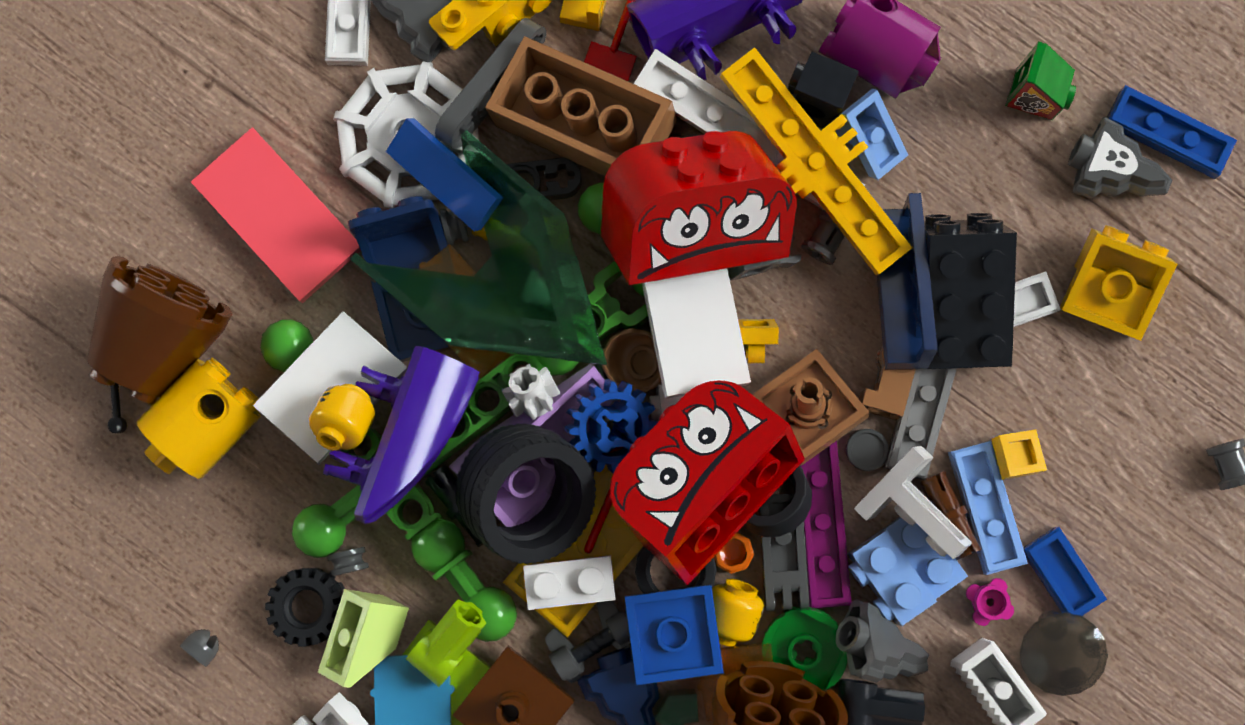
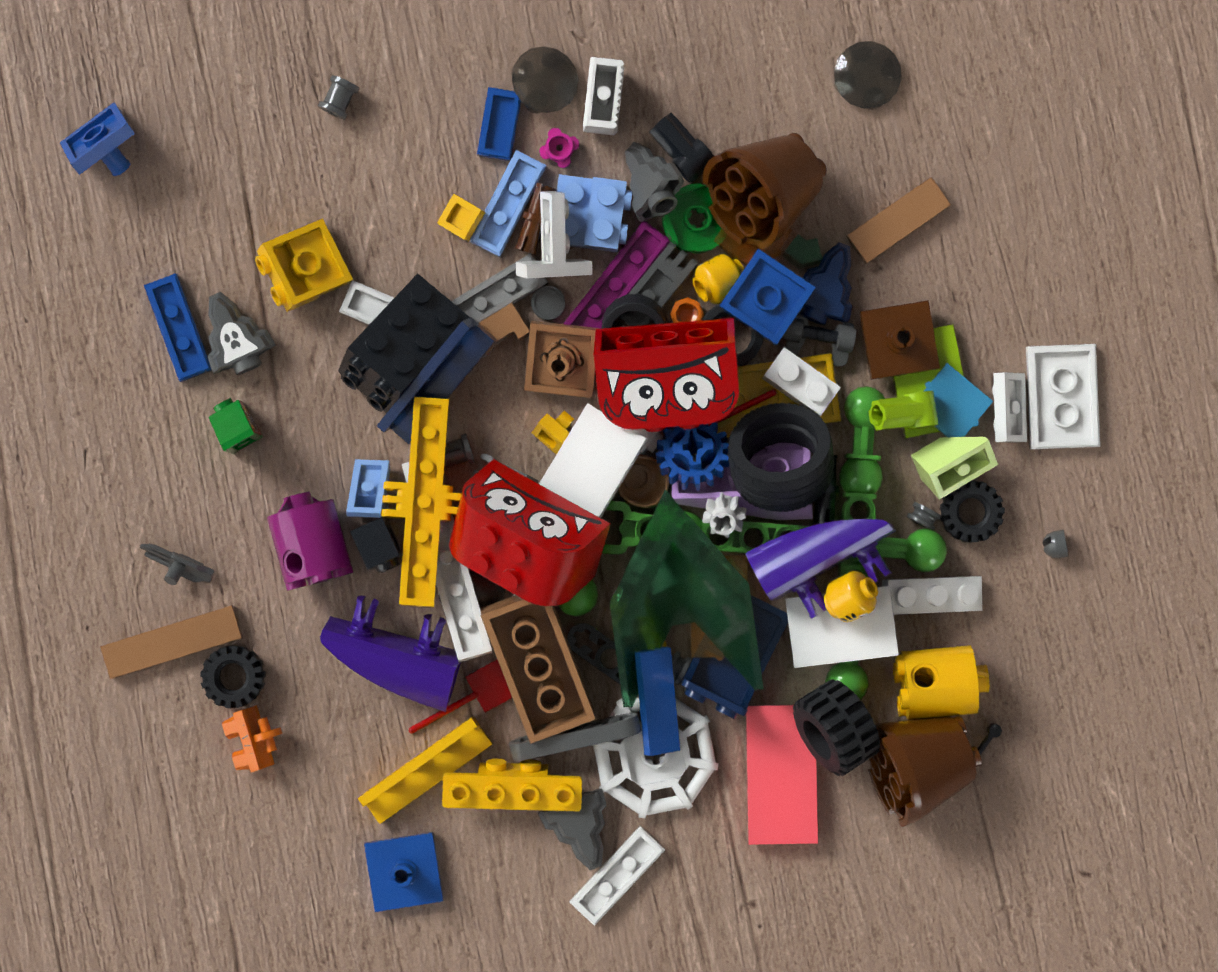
camera: 145 degrees left, 5 degrees up
(254, 289) = (836, 727): none -> black tyre
(273, 498) = (935, 594): none -> white plate

